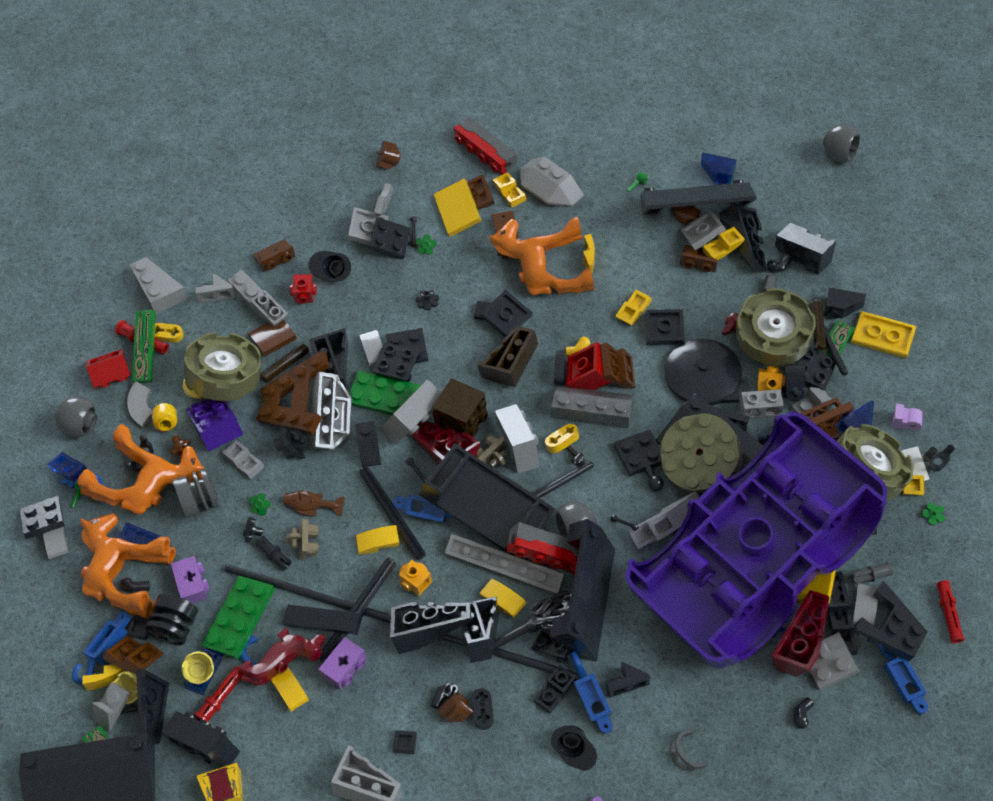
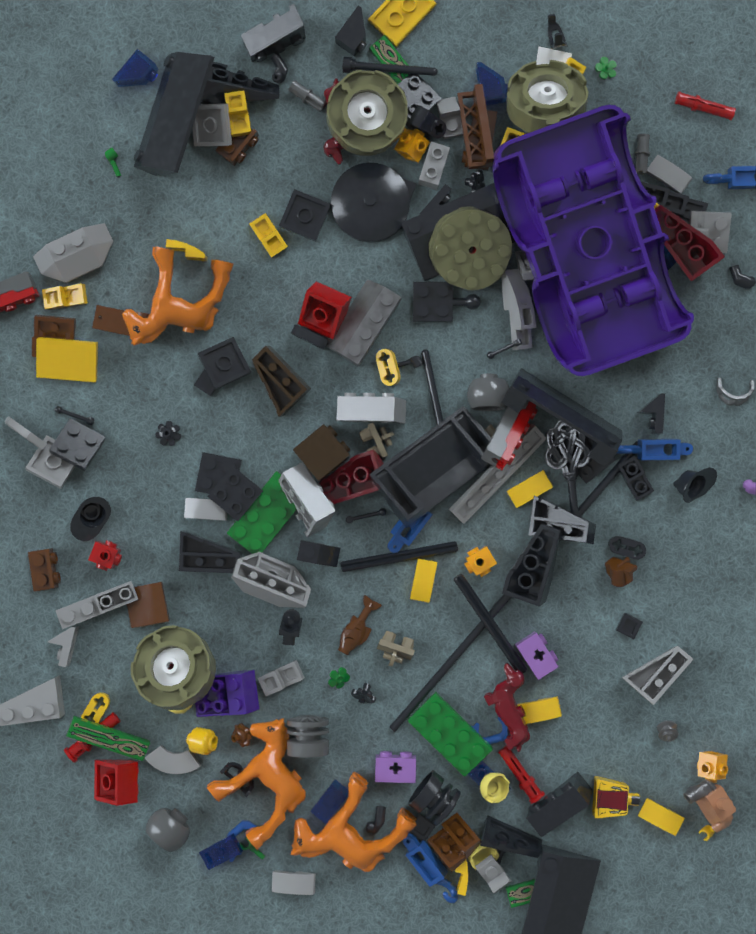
camera: 75 degrees left, 30 degrees up
(42, 517) = (267, 889): plate -> none
(273, 552) = (396, 681): black pin -> none
(284, 363) = (184, 601): dark brown axle -> none
(298, 381) = (221, 595): reddish brown plate -> none
(322, 619) = (488, 659): black tile -> none
(425, 244) = (100, 409): green plant -> none
(443, 693) = (597, 576): black arm -> none
(582, 343) = (293, 307): yellow arm -> none
(617, 366) = (334, 281): reddish brown slope -> none
(819, 332) = (366, 65): dark brown axle -> none
(899, 631) = (708, 157): black wing -> none
(907, 418) = (502, 41): lavender leg -> none

